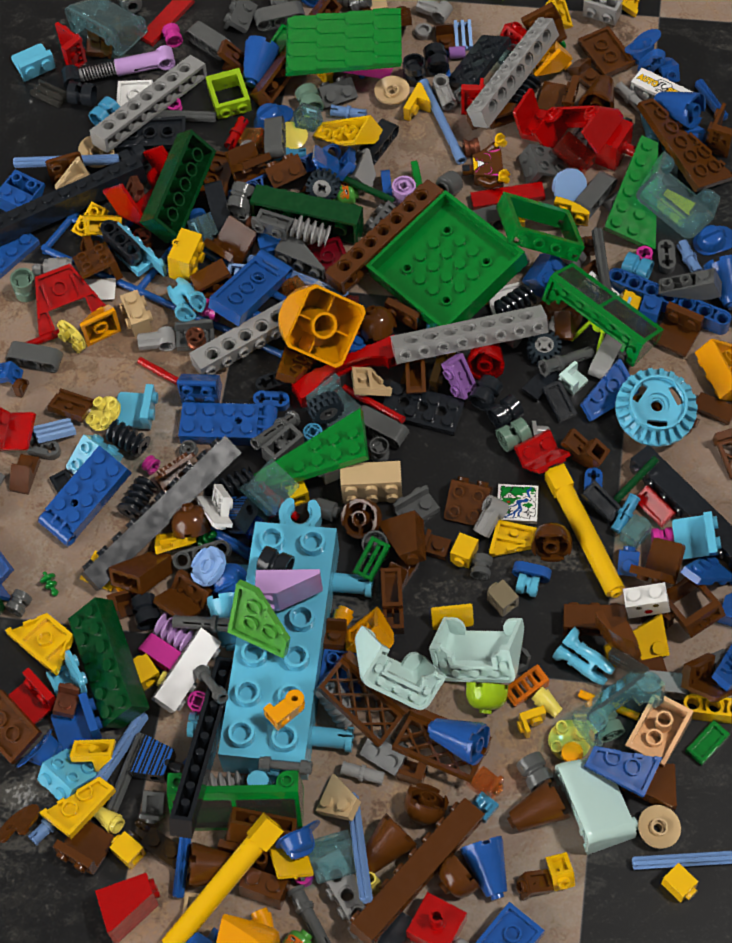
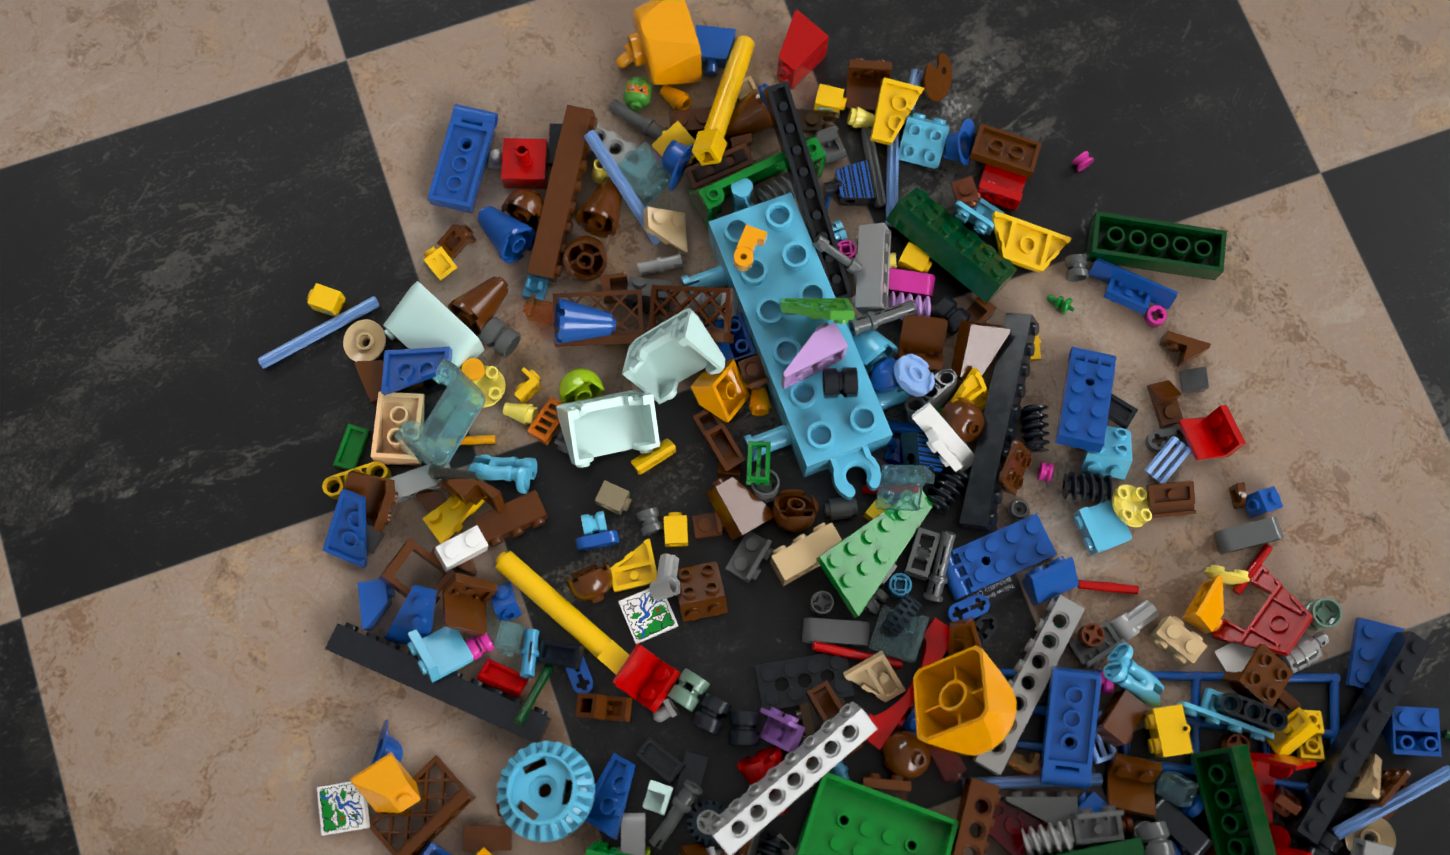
camera: 145 degrees right, 15 degrees up
(83, 725) = (938, 183): blue bracket -> none
(93, 751) = (912, 160): yellow slope -> none
(266, 764) = (741, 202): dark grey bar -> none

